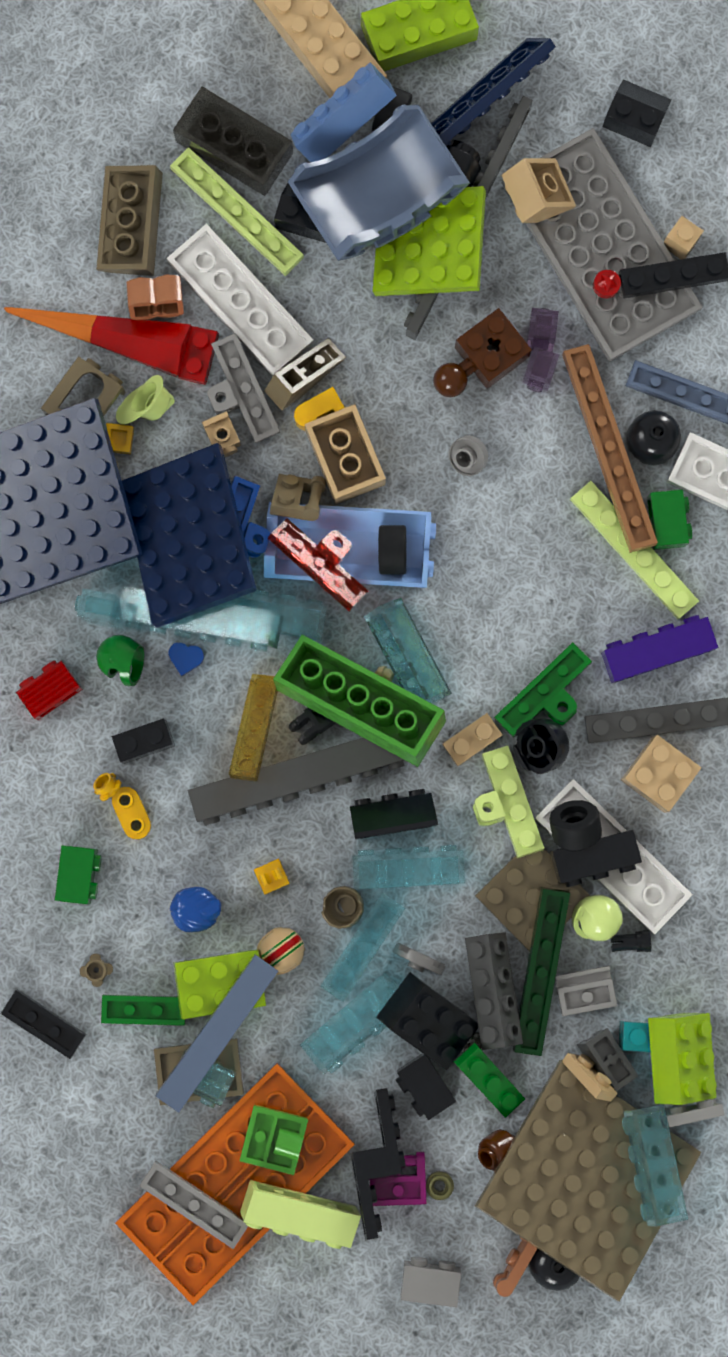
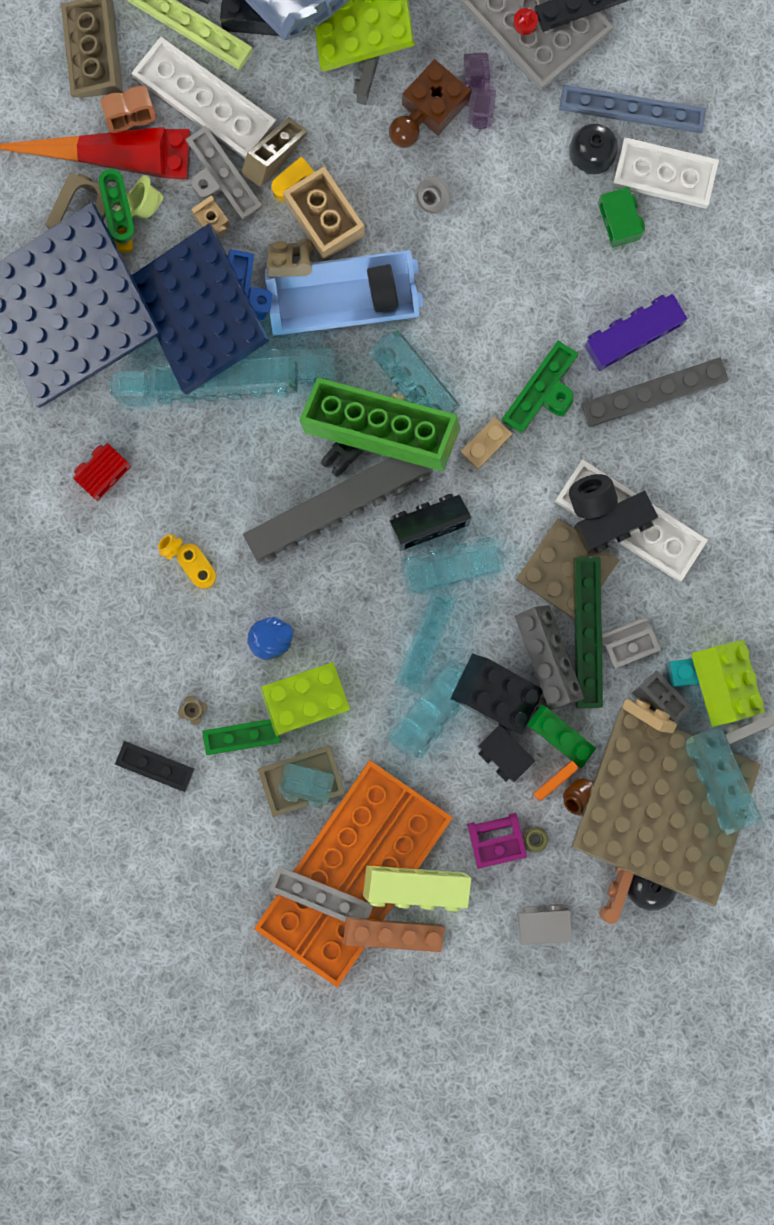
camera: 10 degrees left, 0 degrees up
(77, 875) = (159, 629): green brick -> none
(117, 655) = (160, 426): green helmet -> none
(118, 393) = (116, 196): none -> green plate
(143, 741) = (194, 499): black brick -> none
(185, 657) = (217, 420): blue tile -> none
(216, 1033) = (311, 740): sand blue tile -> none
(254, 728) = (290, 468): clear yellow plate -> none
(264, 1261) = (393, 934): none -> nougat plate
(271, 876) = (332, 597): yellow tile -> none
(274, 1139) = (380, 826): bright green plate -> none
(282, 949) = (353, 660): tan helmet -> none
(320, 561) = (321, 309): clear red plate -> none
(351, 903) = (407, 607): dark tan hair -> none
(377, 1163) = (476, 829): black bracket -> none
(418, 960) = (477, 645): light grey plate -> none
(473, 1126) = (554, 781): none -> orange tile
(508, 803) = (528, 492): yellowish green plate -> none
(541, 745) = (548, 434): black cylinder -> none
(598, 917) = (629, 574): yellowish green helmet -> none
(609, 448) = (556, 164): medium nougat plate -> none
(639, 941) = (669, 591): black pin -> none
(644, 562) = (596, 250): yellowish green plate -> none
(661, 773) = (659, 439): tan brick -> none

